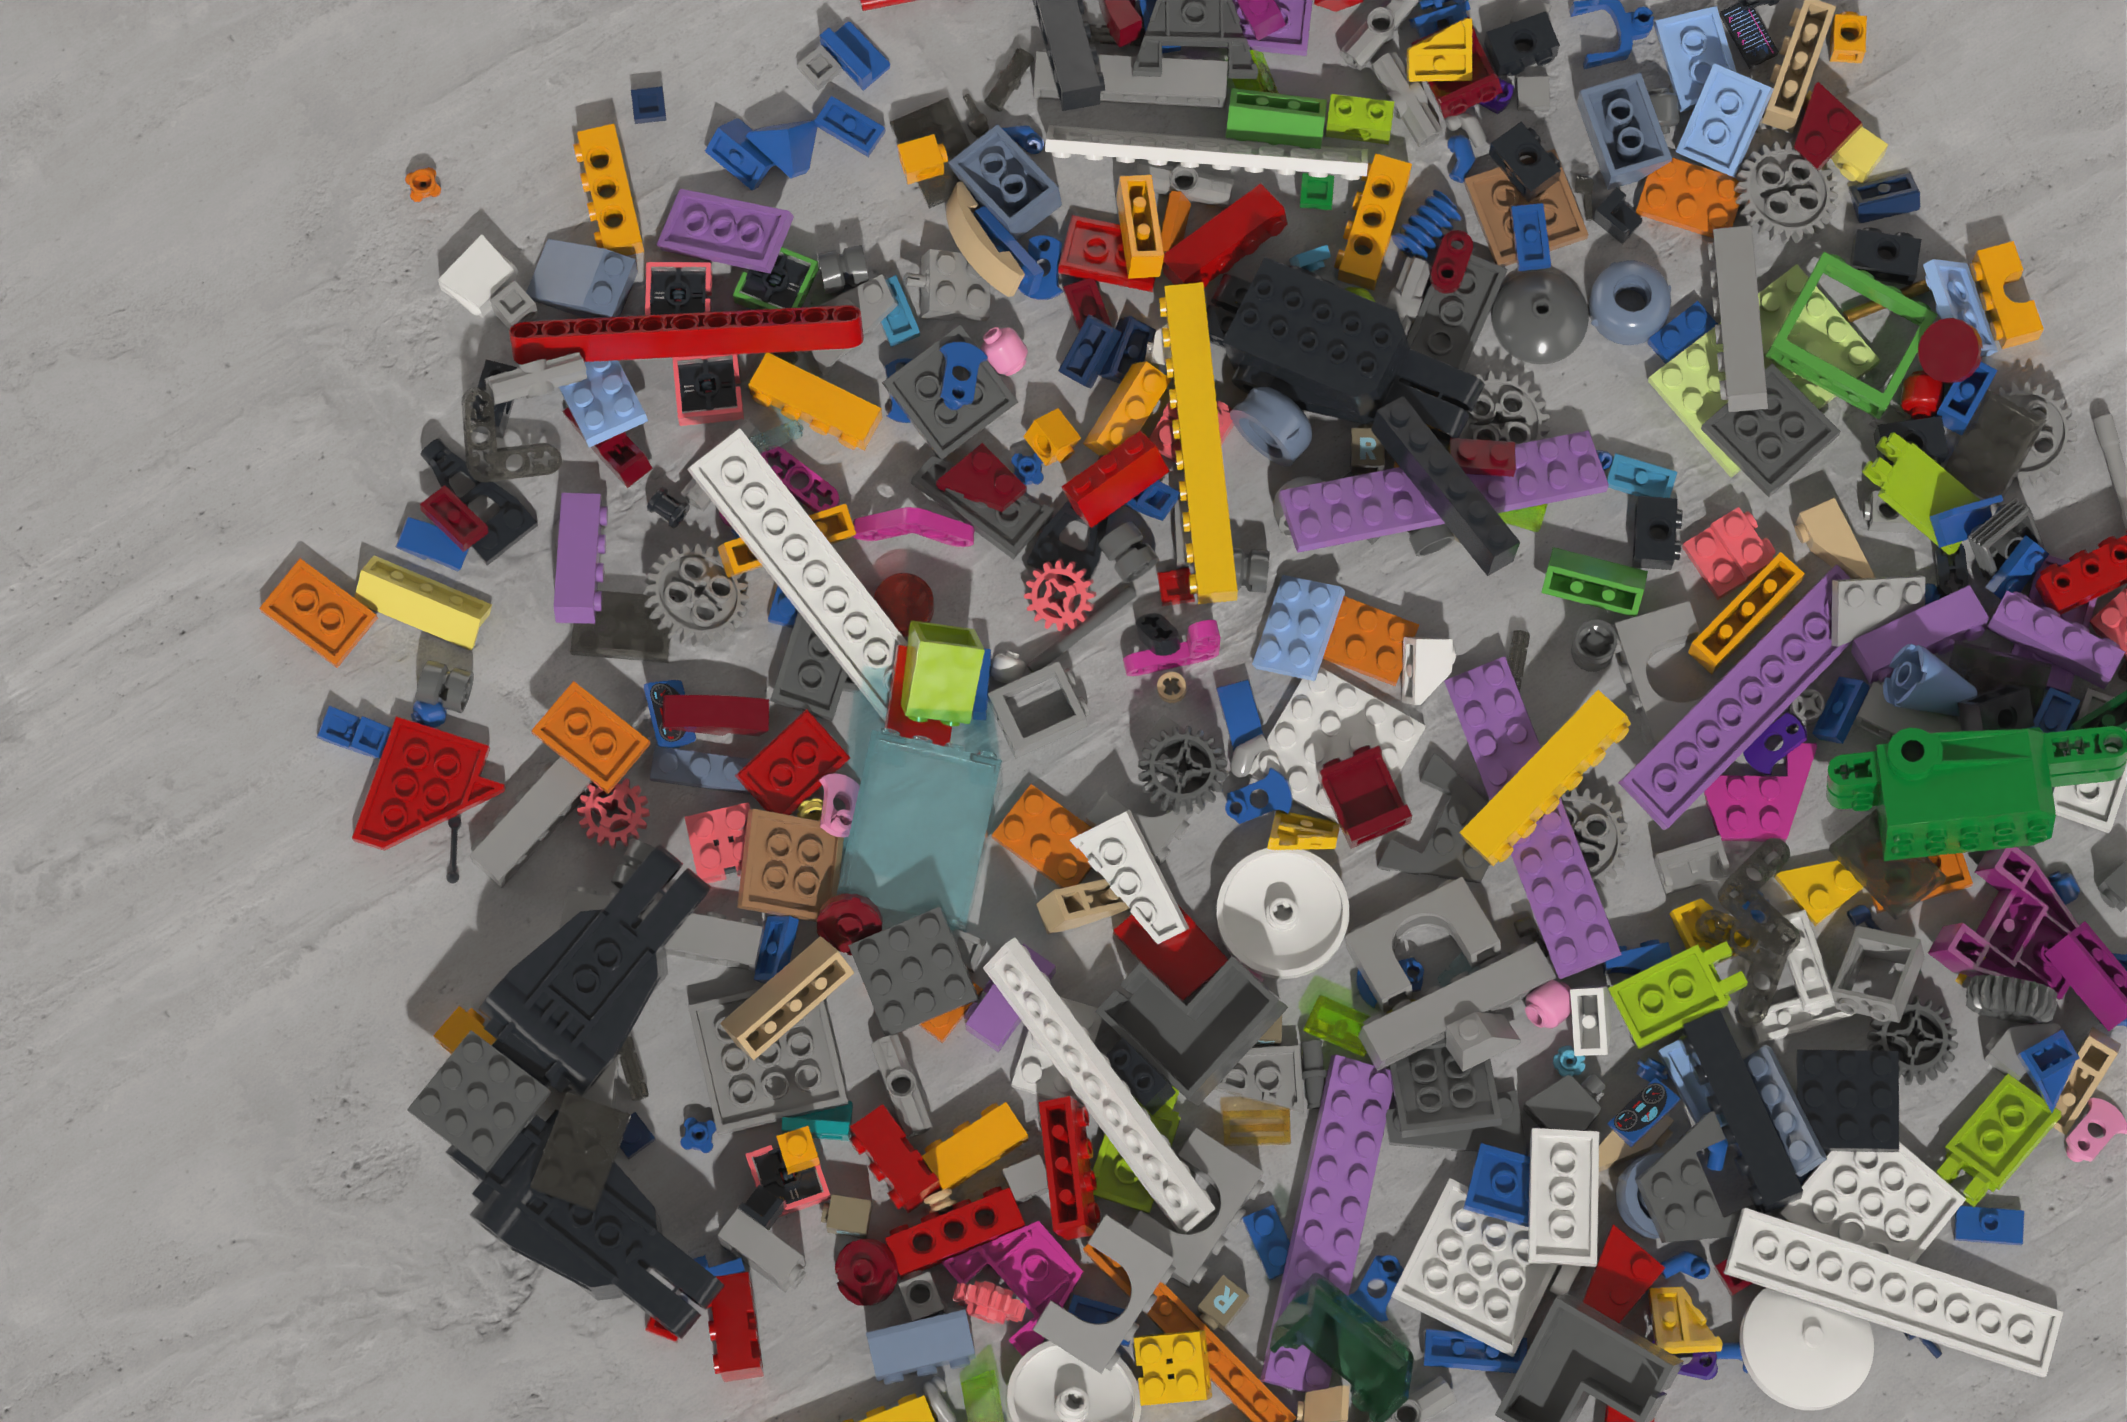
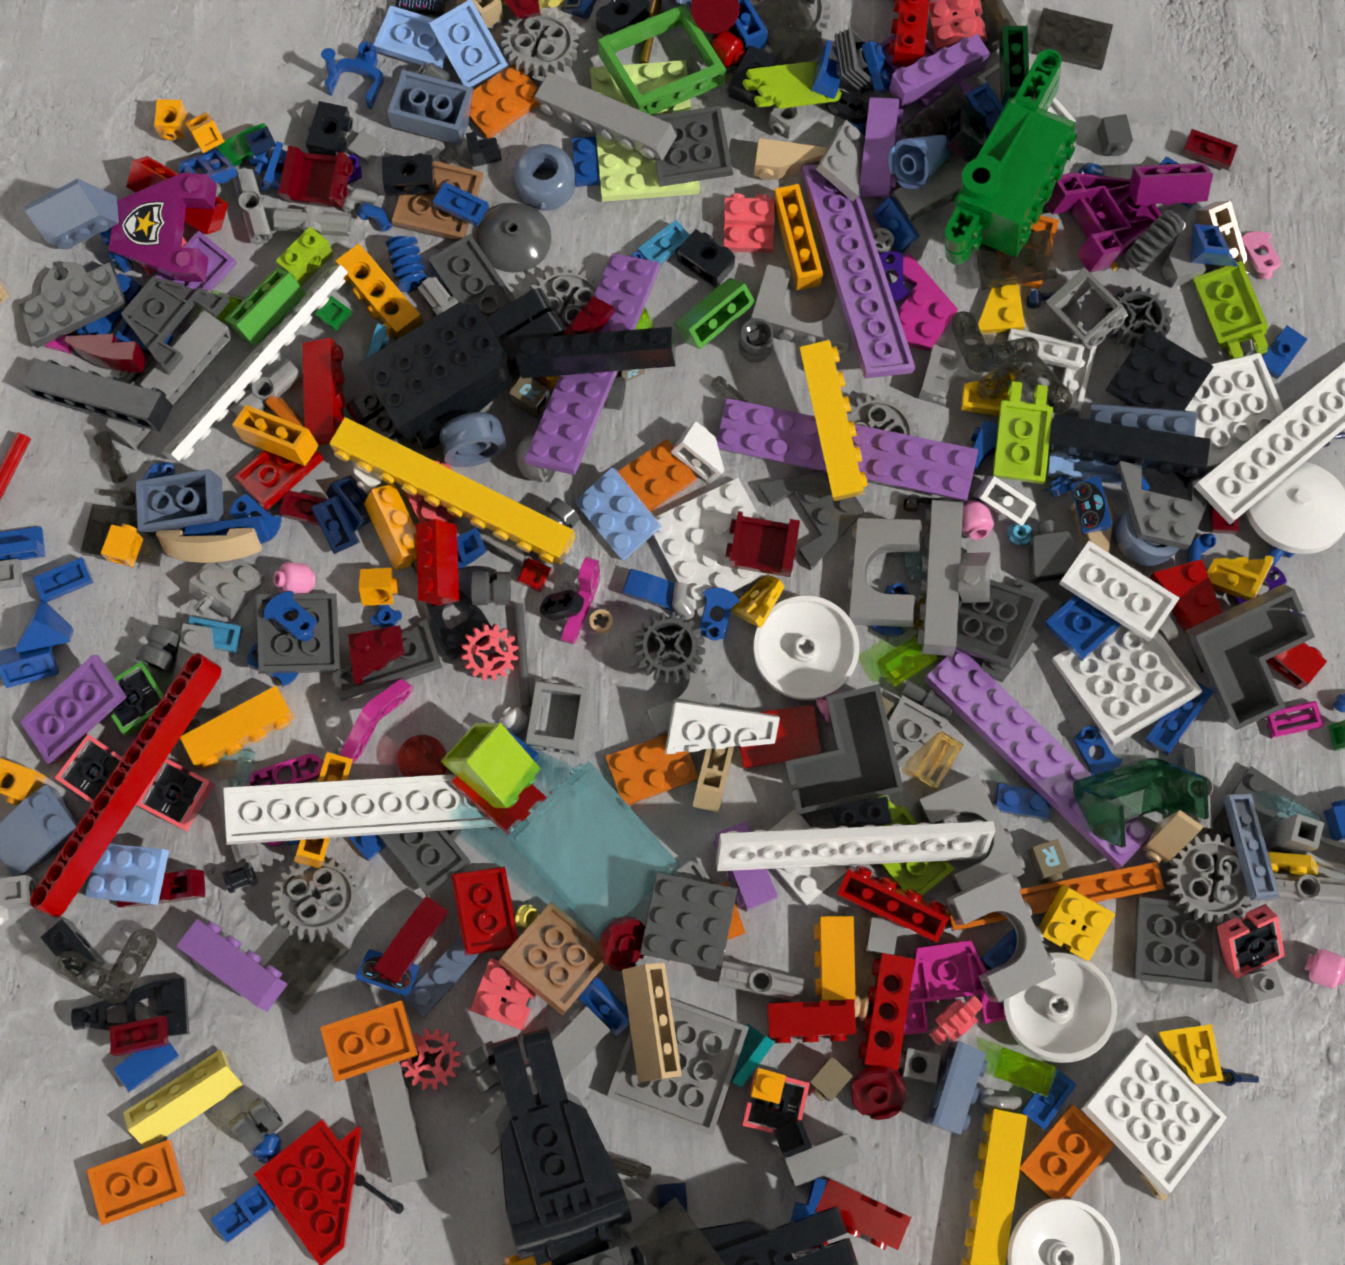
camera: 60 degrees left, 0 degrees up
(536, 378) = (80, 910): light grey piece -> none
(702, 1144) = (711, 1149): blue plate -> none
(846, 789) = (527, 883): bright pink piece -> none
(1443, 55) = (301, 176): yellow wing -> none
(1453, 260) = (440, 260): dark red plate -> none

